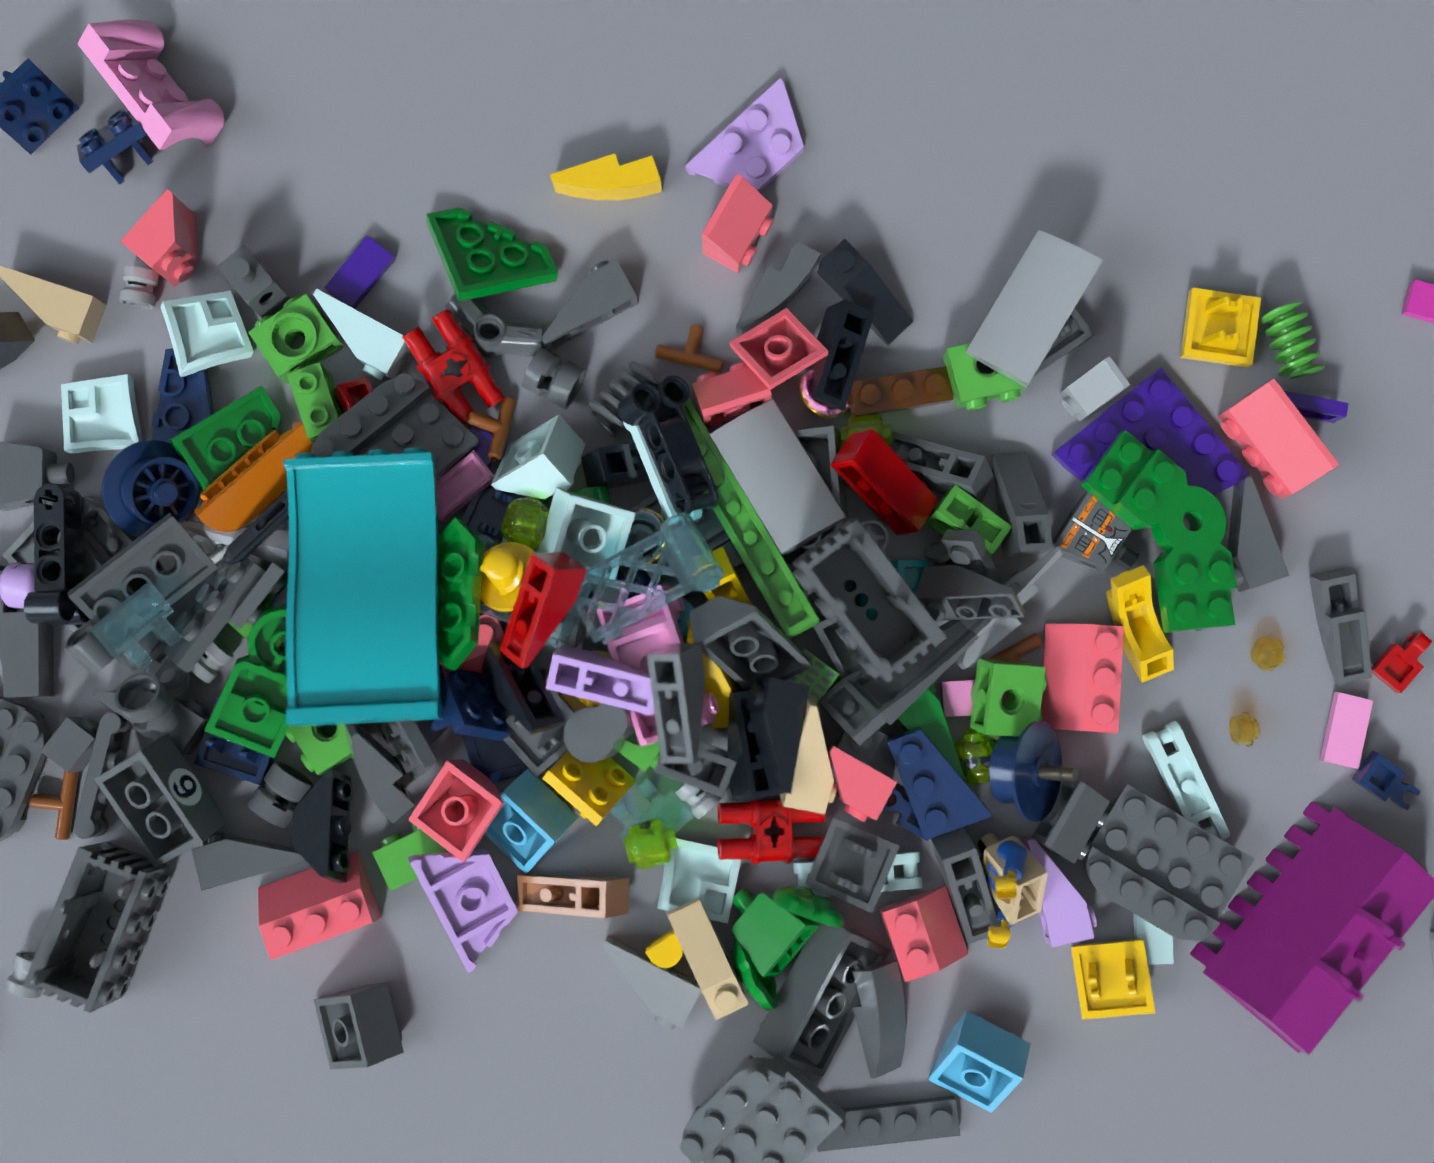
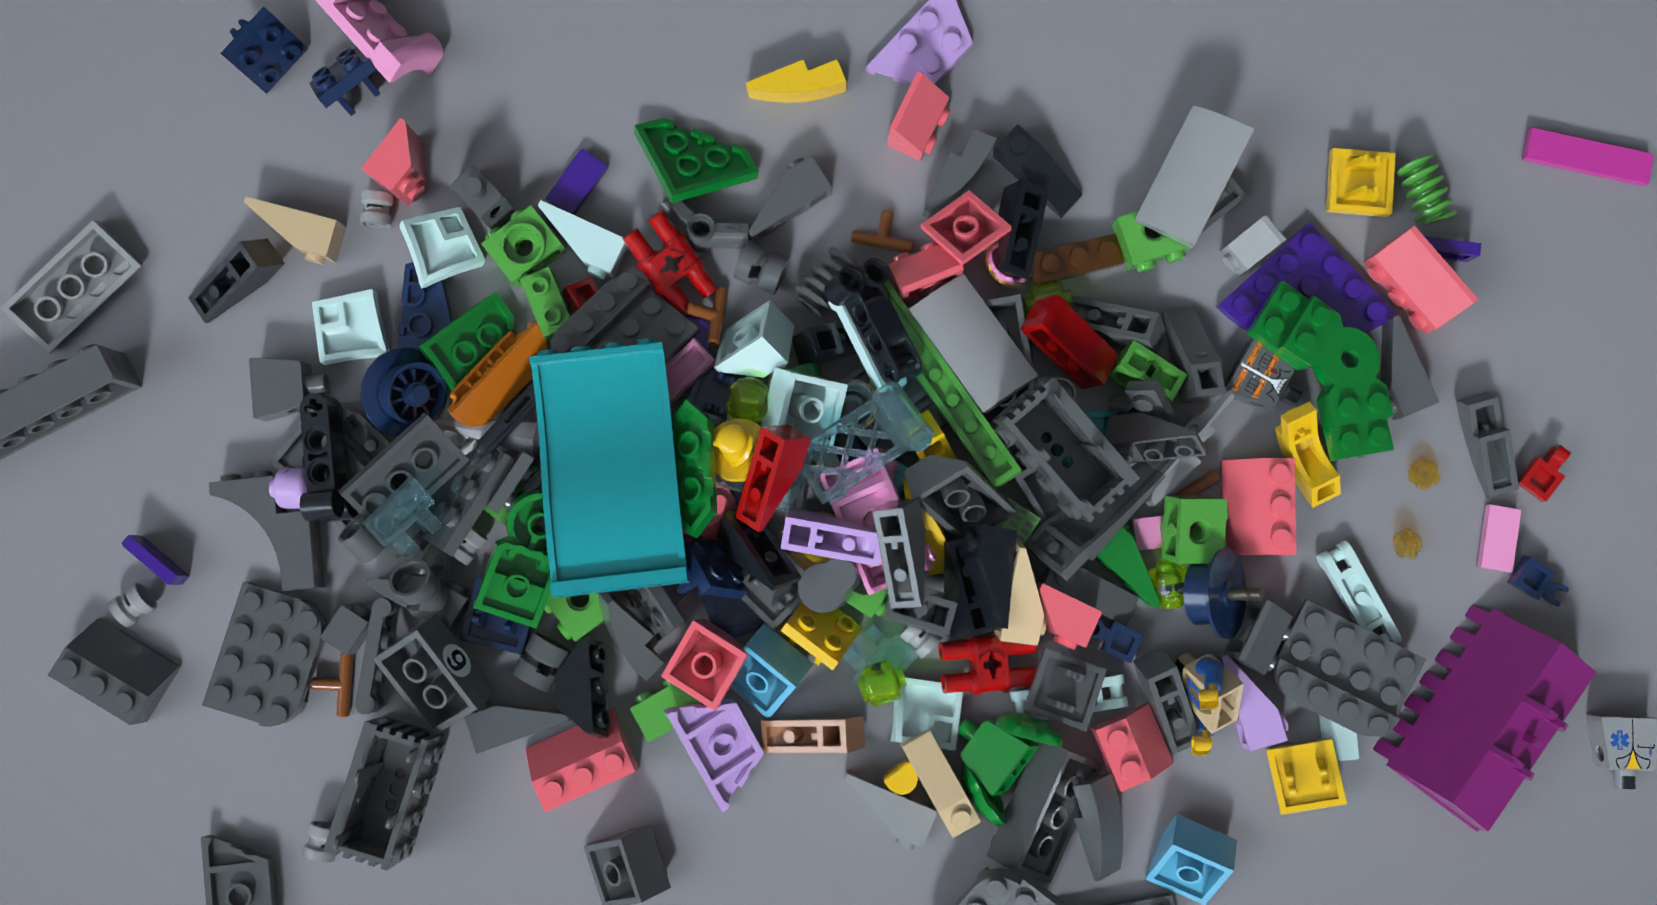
camera: 10 degrees left, 0 degrees up
(933, 786) = (1134, 615): dark blue wing -> none

